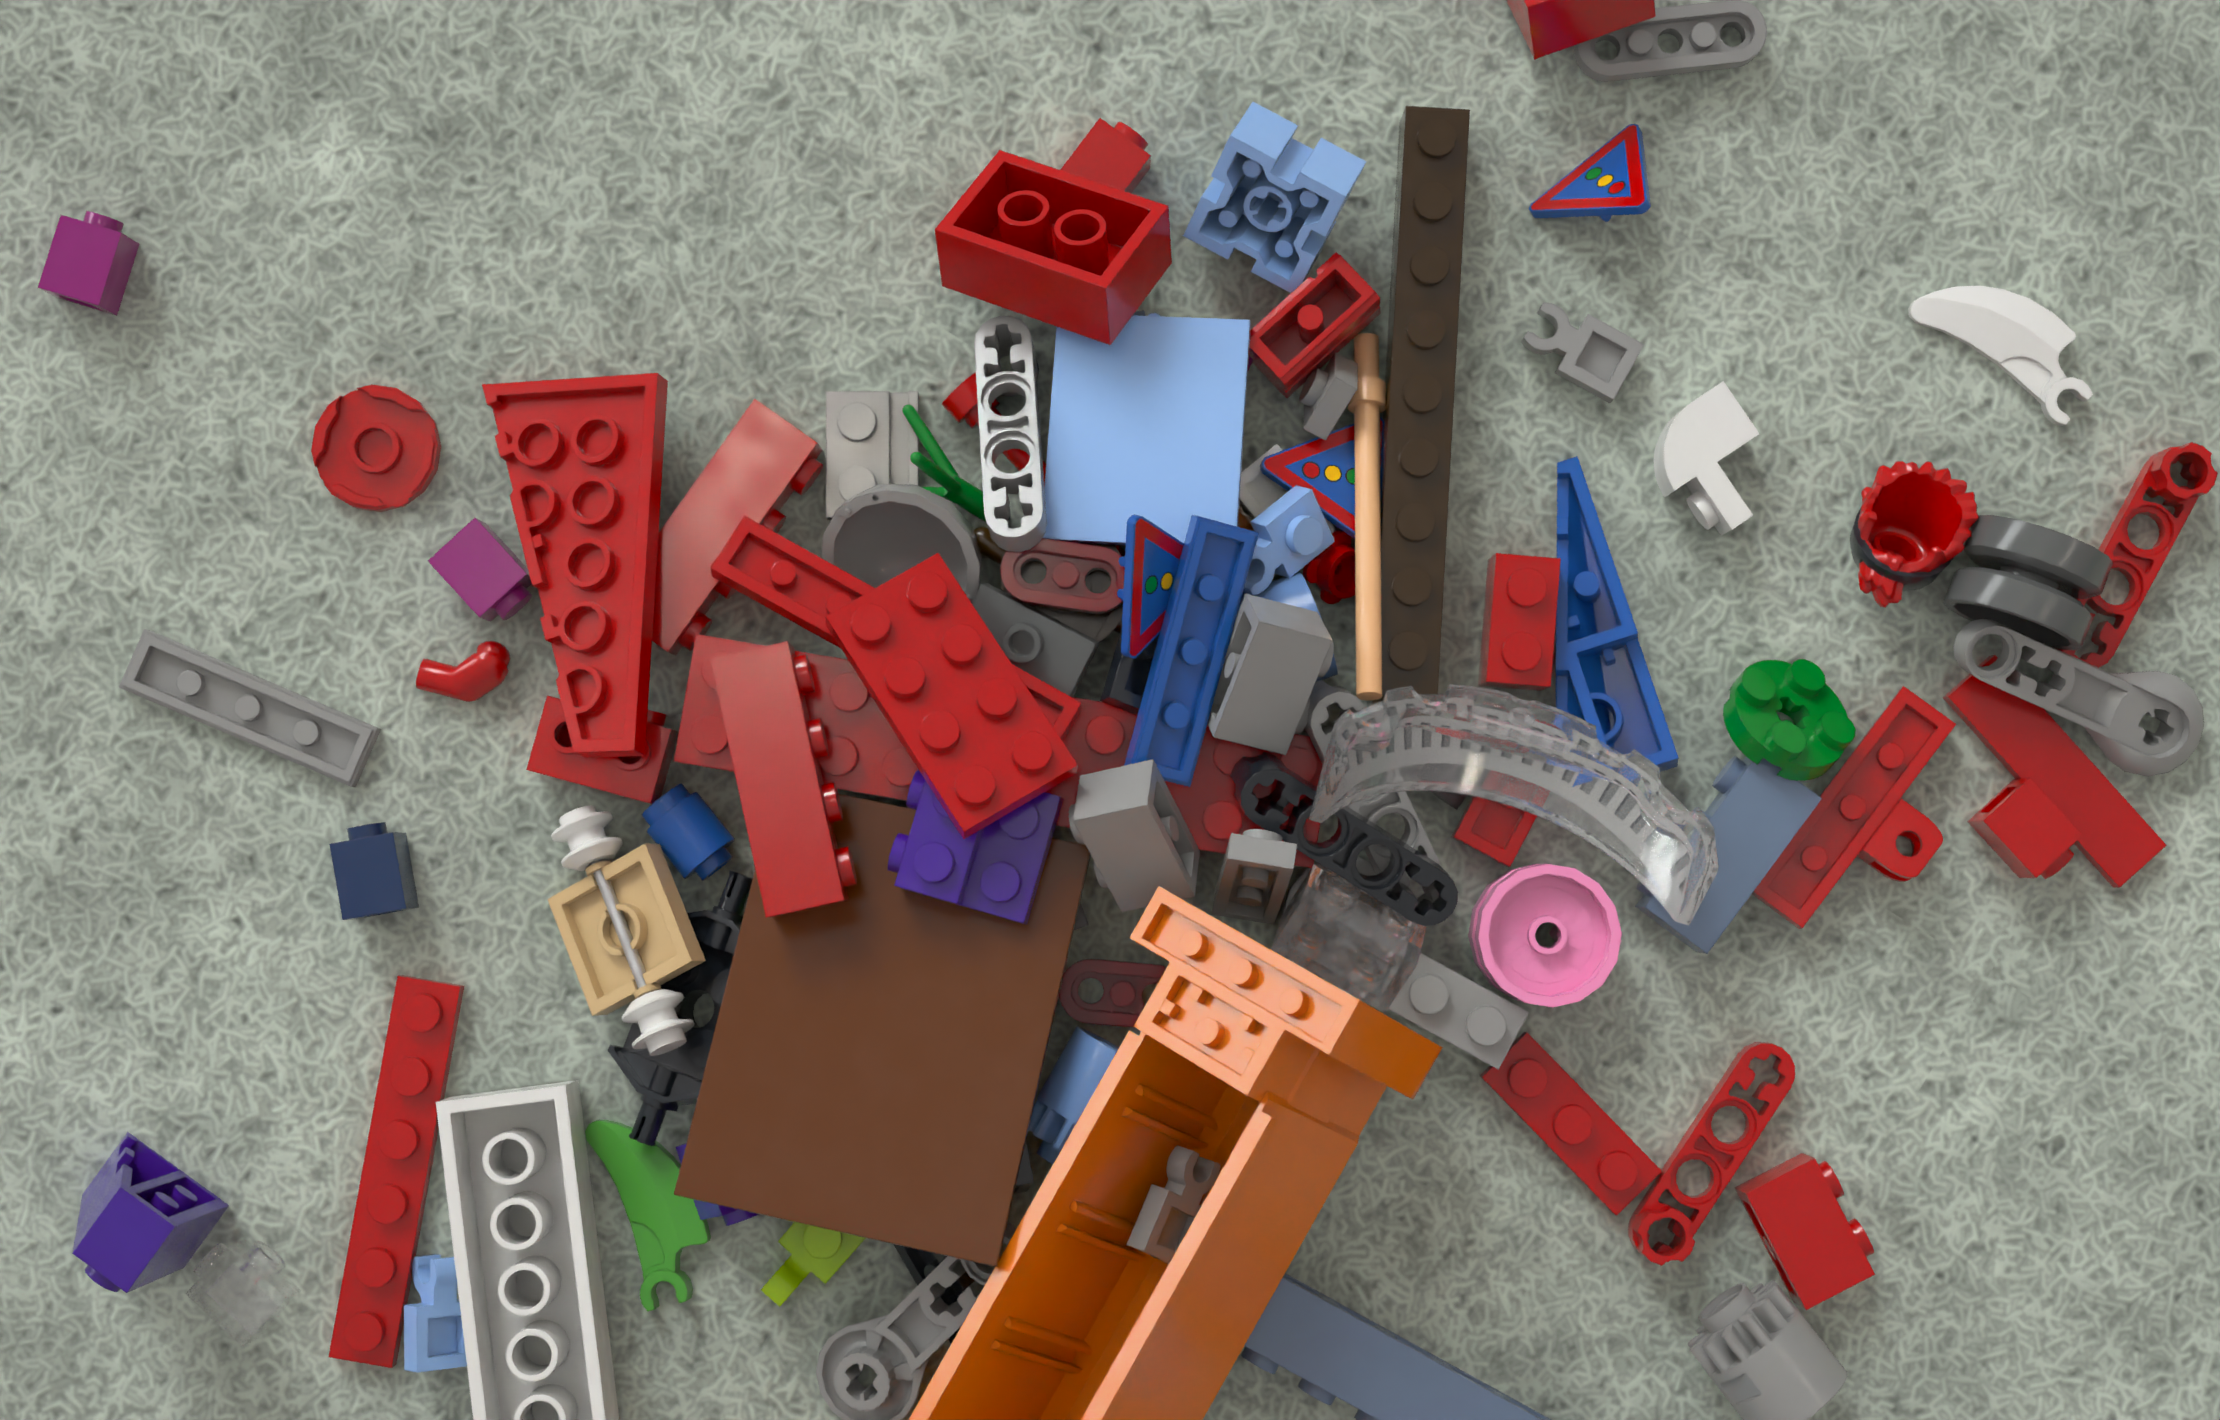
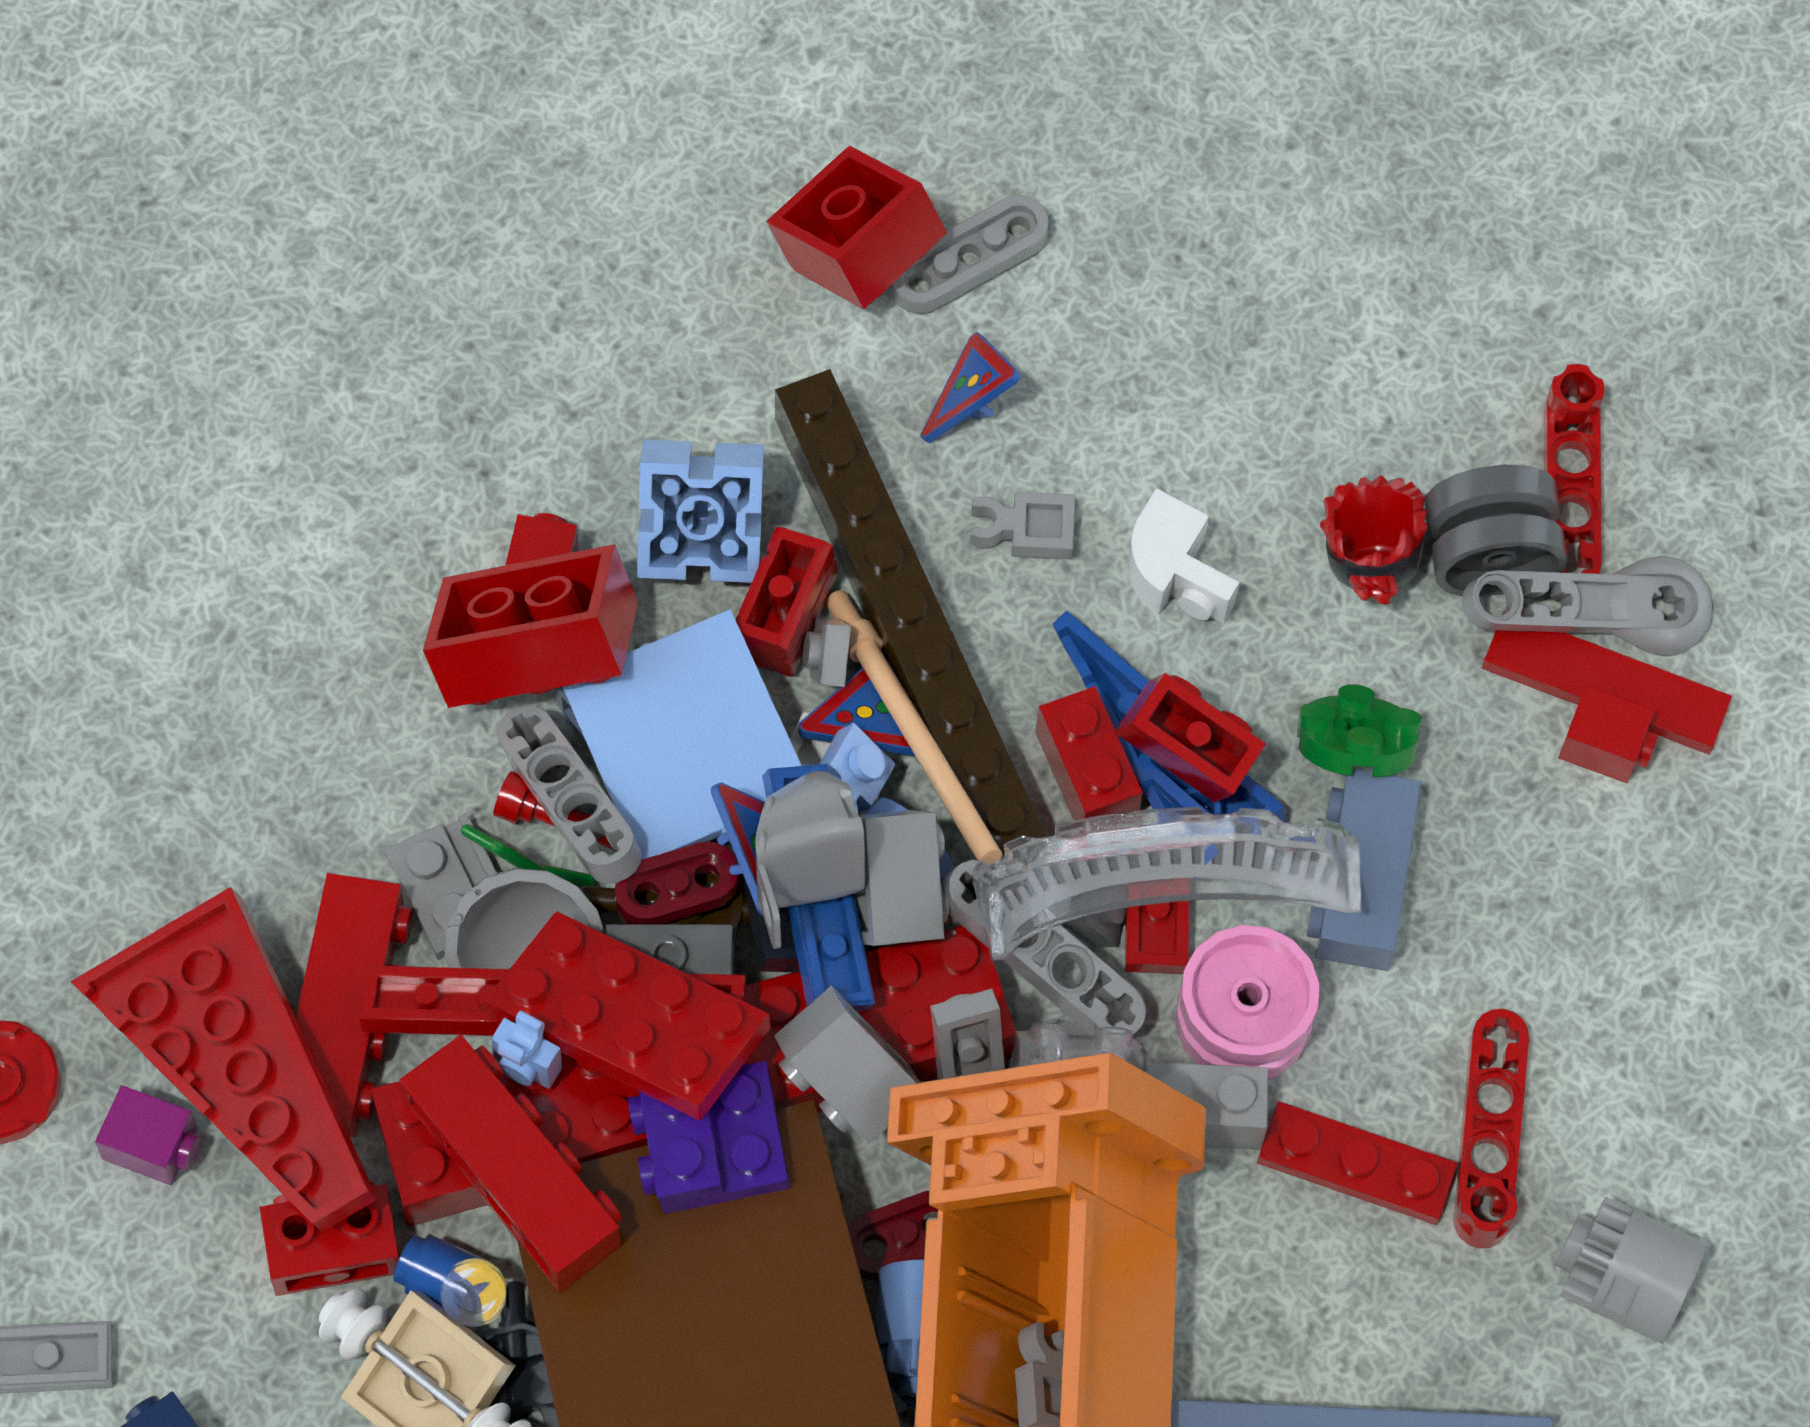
camera: 30 degrees left, 20 degrees down
(470, 678) = (177, 1238): red arm -> none
(700, 873) = (473, 1292): none -> clear tile
(839, 683) = (525, 1053): none -> light blue plate
(1190, 621) = (808, 847): none -> light grey piece
(1334, 570) = (910, 787): red plate -> none
(1343, 848) = (1036, 979): black beam -> none
(1621, 660) = (1190, 736): none -> red brick
(1807, 1230) = (1606, 1147): red brick -> none
(1863, 813) = (1465, 788): red plate -> none
(2011, 334) = (1375, 356): white piece -> none

